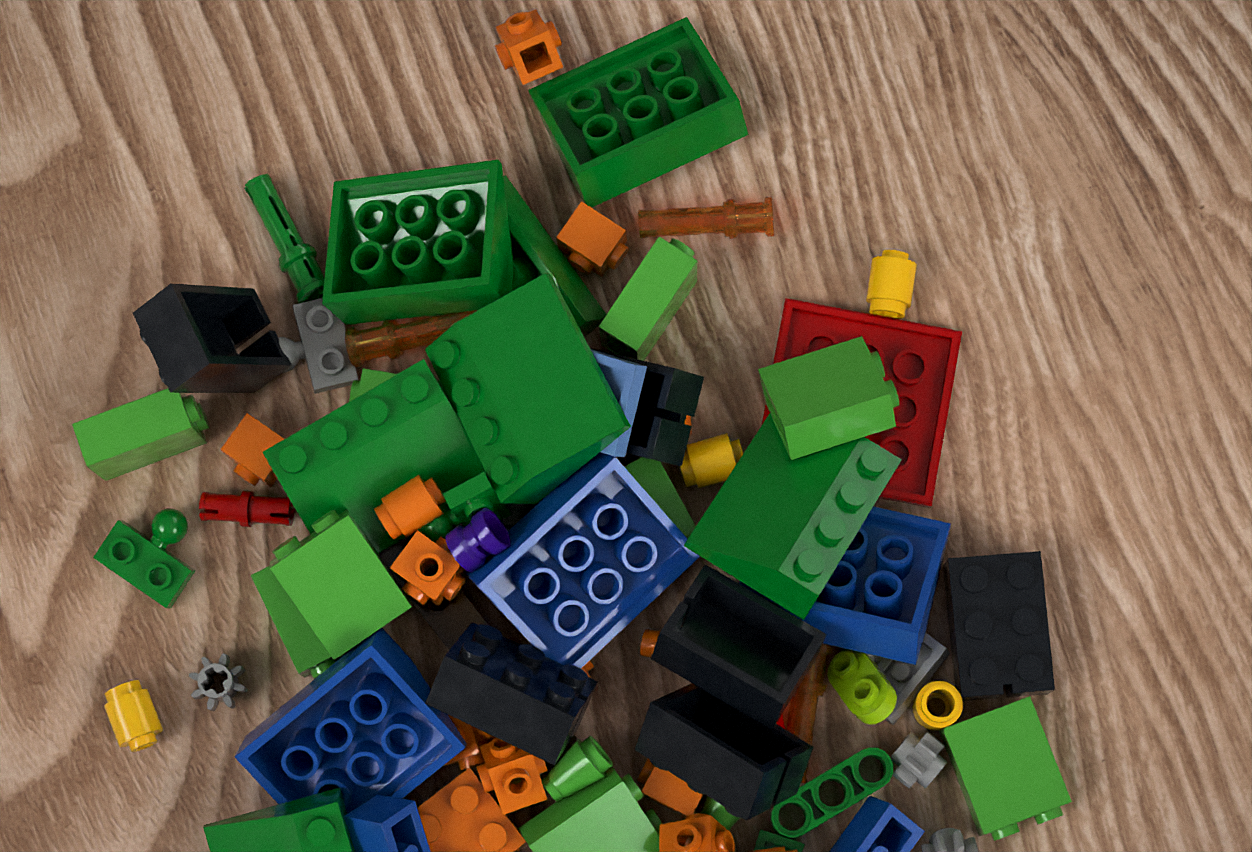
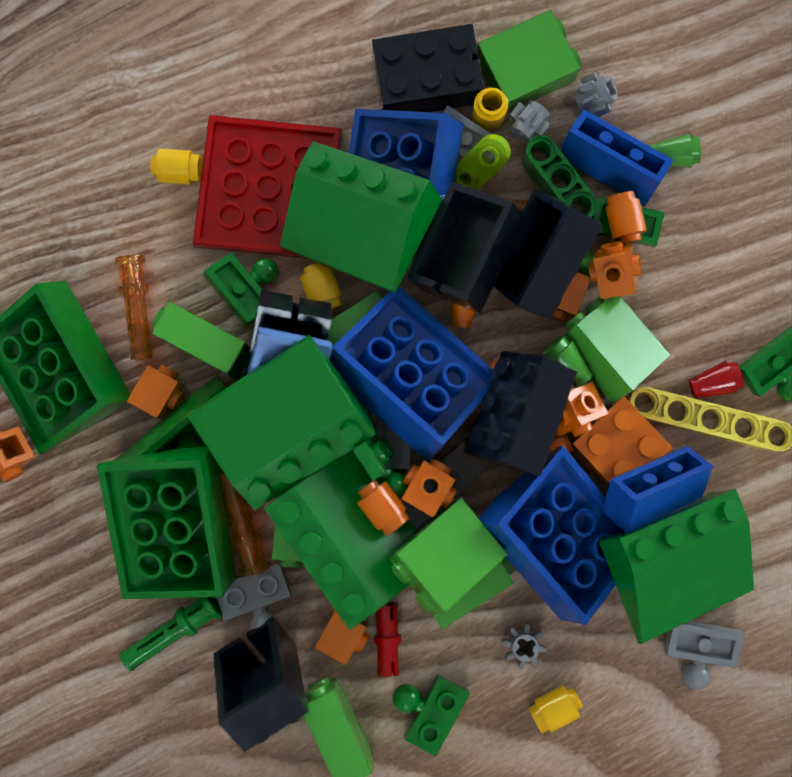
camera: 105 degrees left, 5 degrees up
(478, 540) = (406, 452): dark purple wheel -> none
(722, 354) = (239, 287): none -> green plate
(829, 397) = (269, 198): bright green brick -> none

